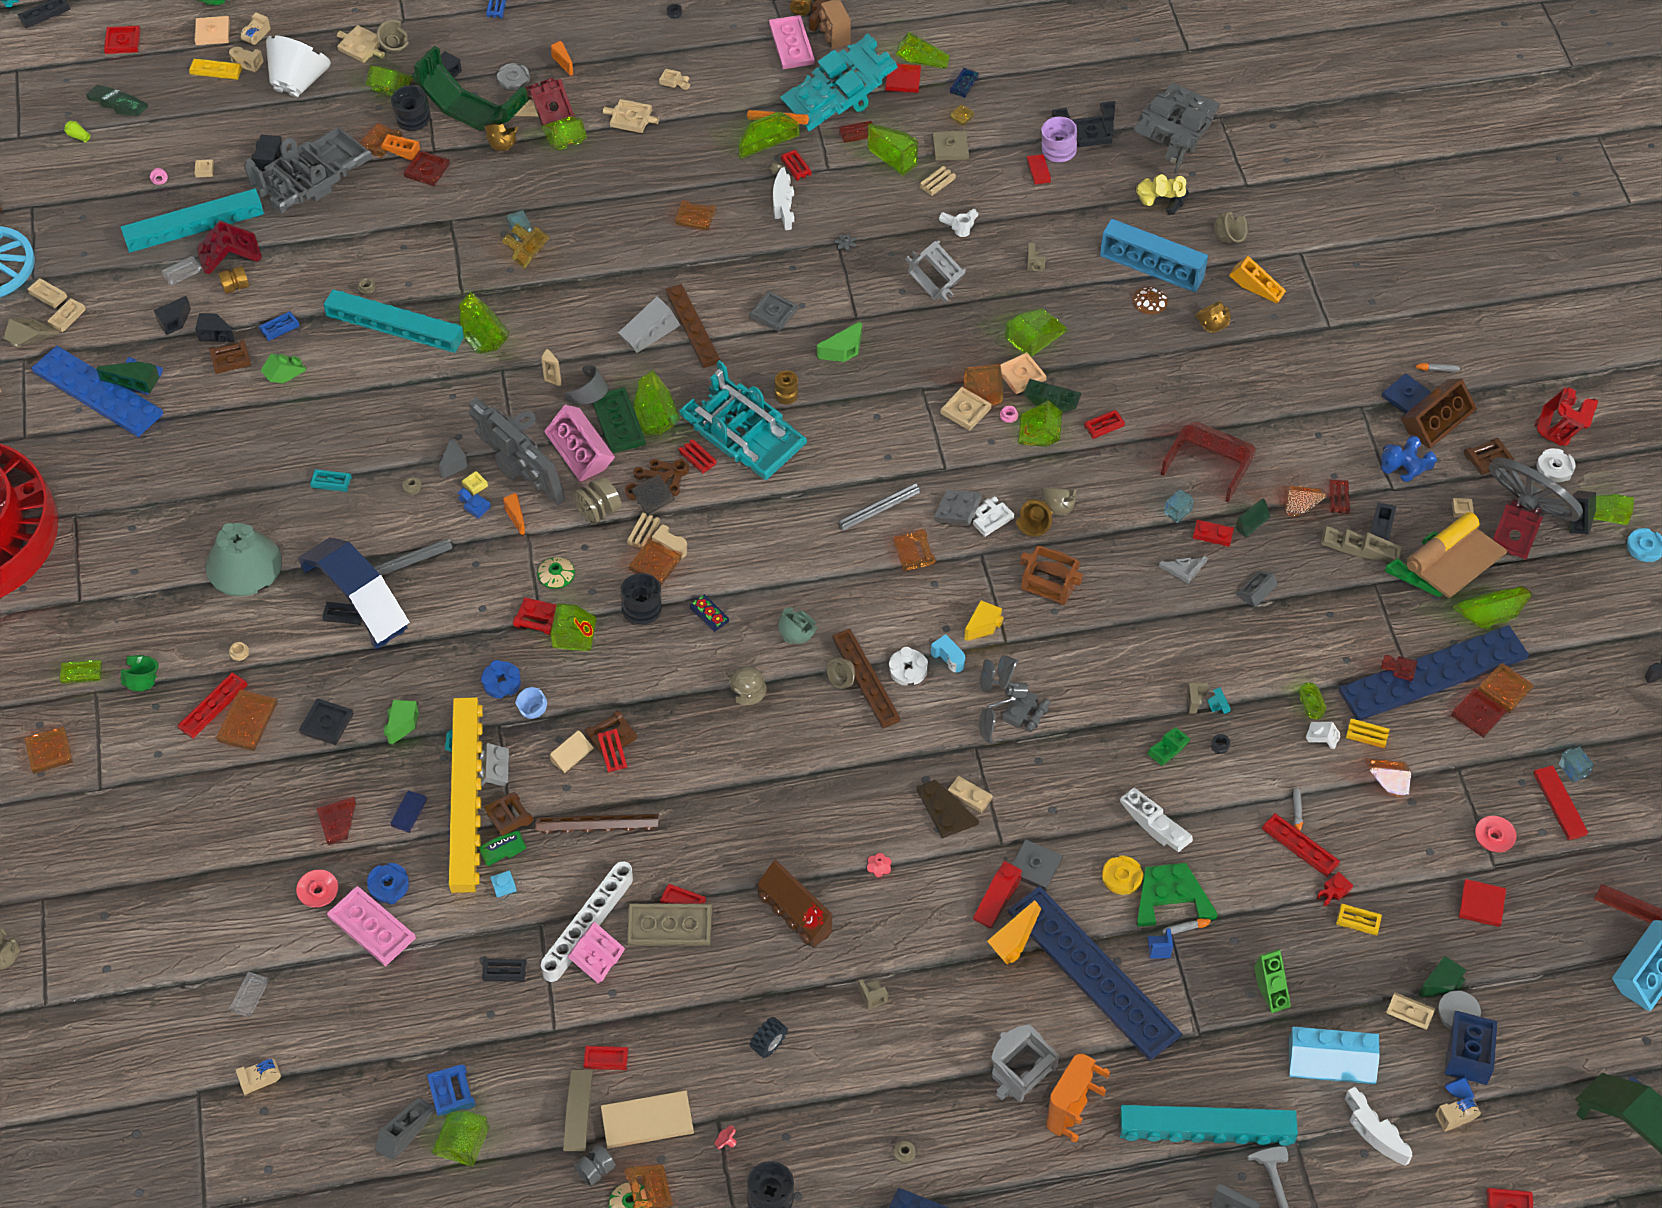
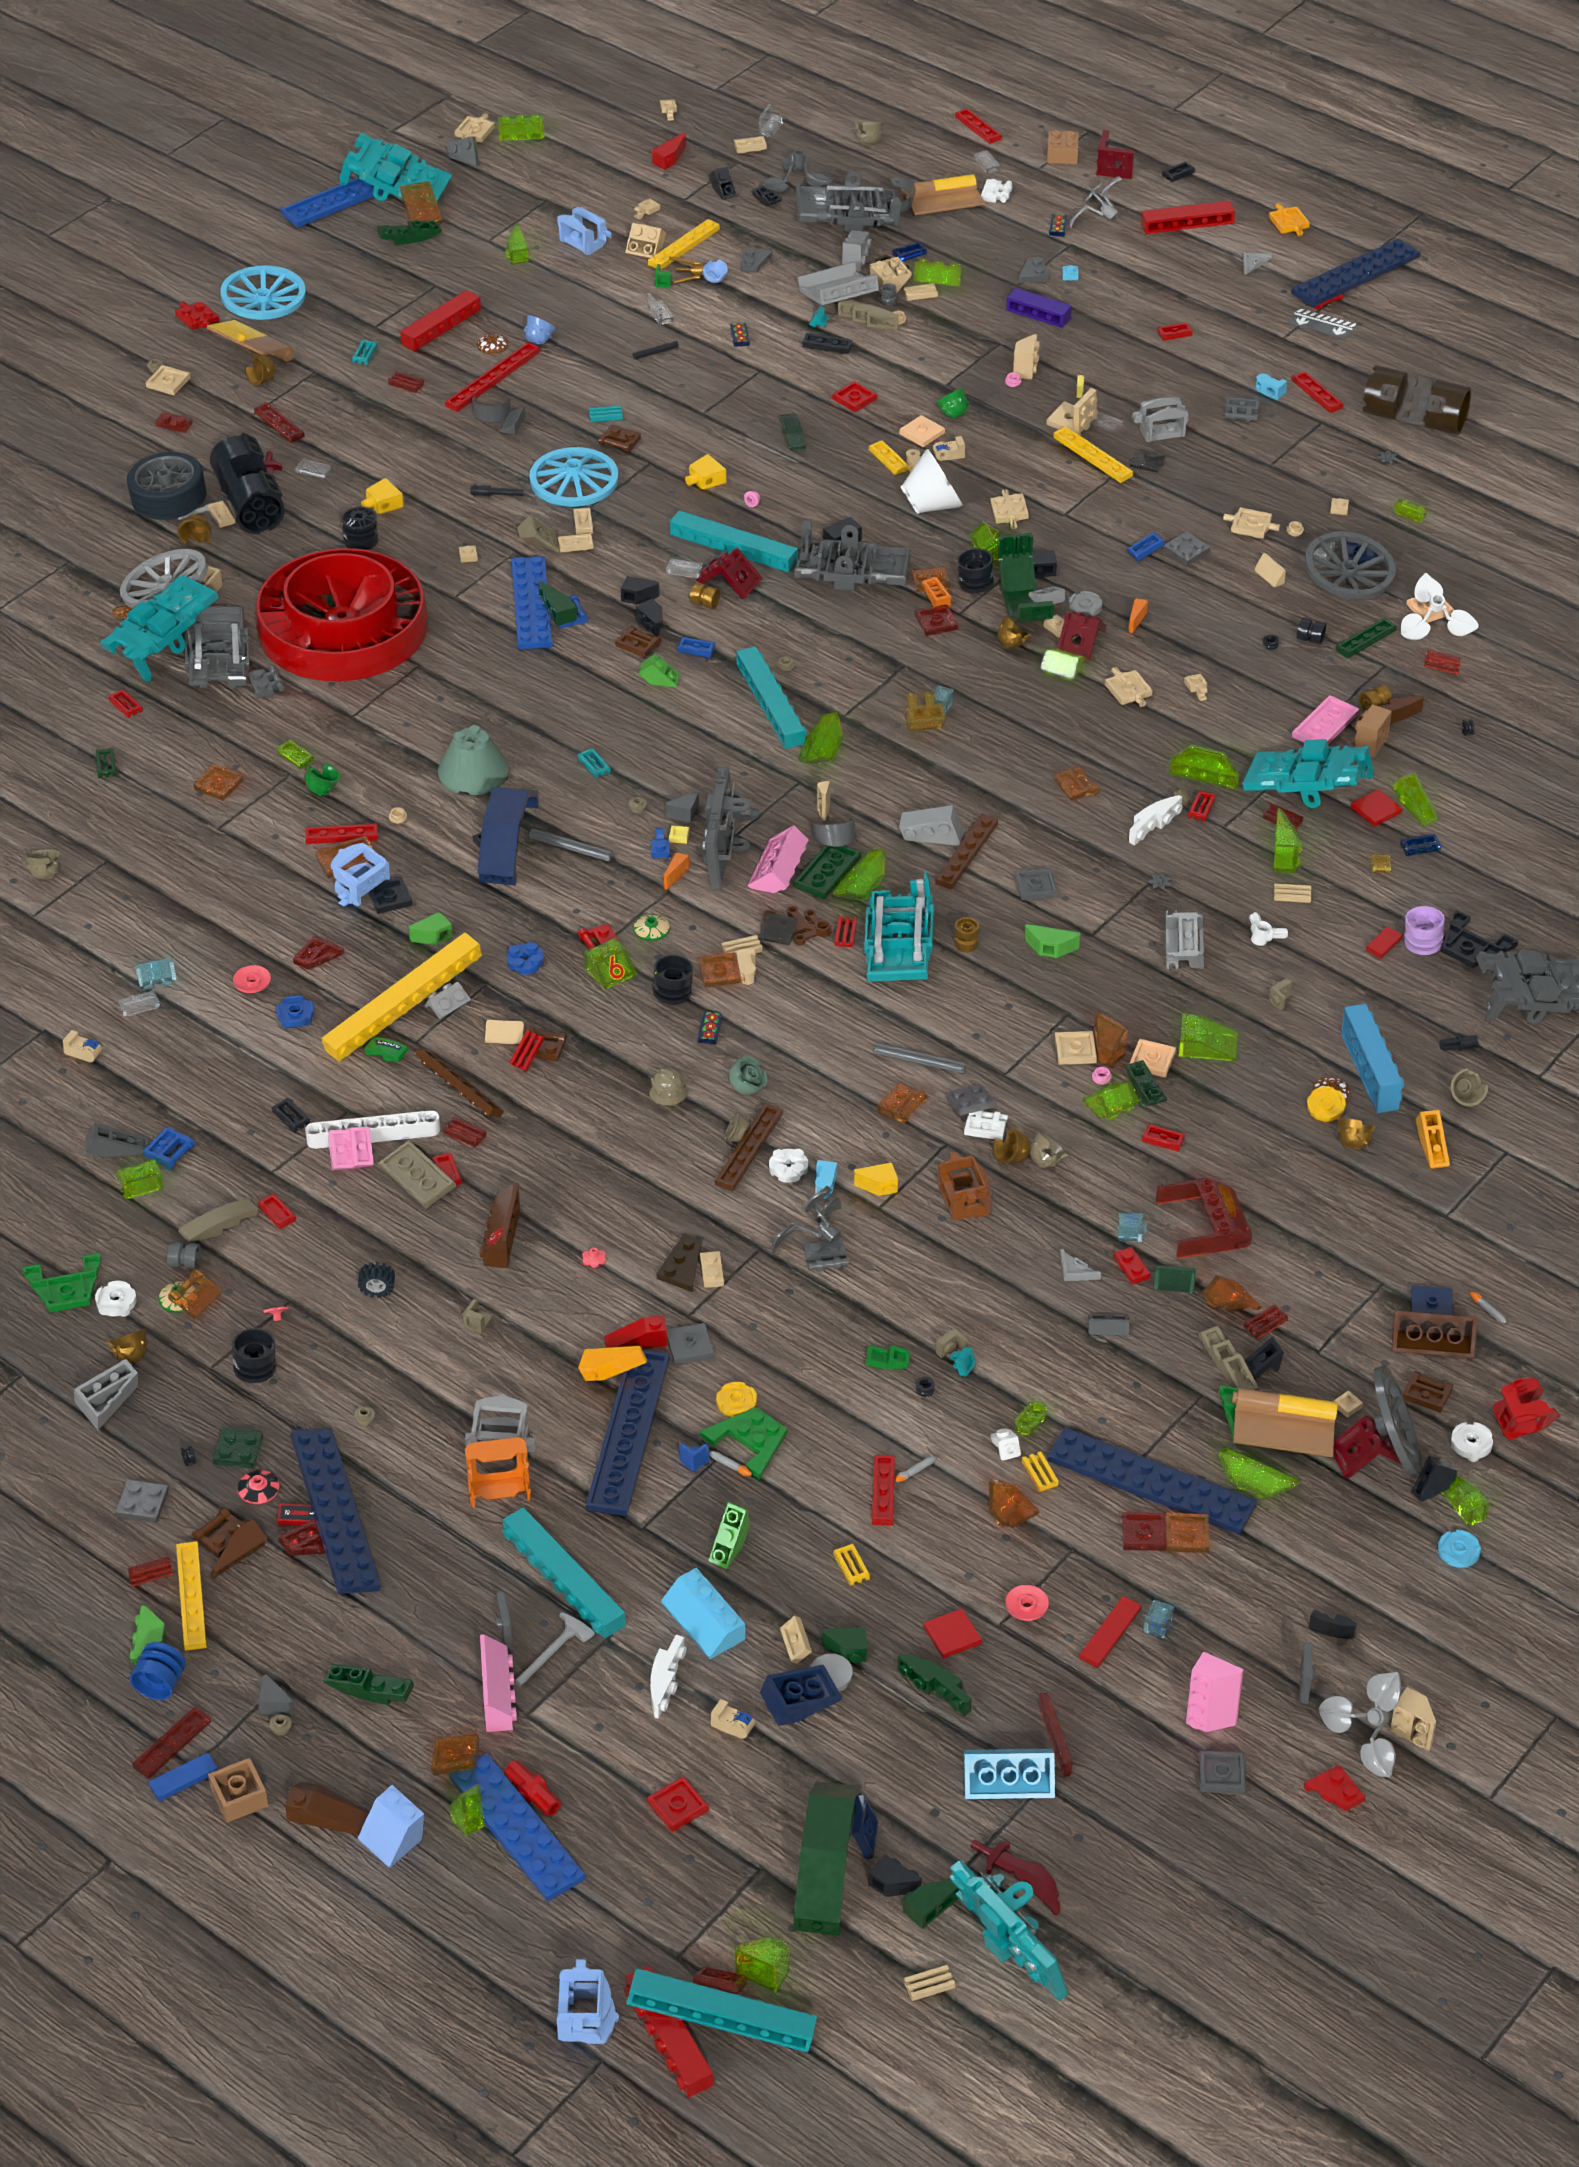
camera: 50 degrees right, 10 degrees down
(76, 131) = (740, 433): lime cone -> none
(94, 181) = (706, 473): none -> yellow torso
(204, 168) = (788, 514): tan plate -> none
(228, 955) = (155, 972): none -> clear light blue slope
(268, 719) = (360, 877): none -> light blue animal
(371, 926) = (252, 1025): bright pink plate -> none
(391, 36) = (1031, 515): dark tan helmet -> none
(408, 811) = (364, 984): clear blue tile -> none
(482, 89) = (1052, 593): none -> light grey slope
(502, 816) = (410, 1028): reddish brown plate -> none
(503, 884) = (358, 1070): medium azure plate -> none
(531, 702) = (519, 984): light blue hair -> none
(597, 500) = (730, 900): dark tan wheel -> none
(647, 1119) = (250, 1262): tan tile -> none
(651, 854) = (466, 1130): none -> clear red tile
(756, 114) = (1243, 773): orange axle -> none
(950, 145) = (1340, 878): dark tan plate -> none
(1153, 820) = (805, 1385): white slope -> none
(1164, 312) = (1326, 1104): none -> yellow tile
(1171, 188) = (1444, 1016): light yellow animal -> none
(1335, 887) = (866, 1534): red plate -> none
(1394, 457) = (1343, 1327): blue animal -> none
(1402, 667) = (1124, 1451): clear red plate -> none
(1460, 1088) = (757, 1710): blue tile -> none
(1522, 946) = (933, 1677): none -> dark green slope

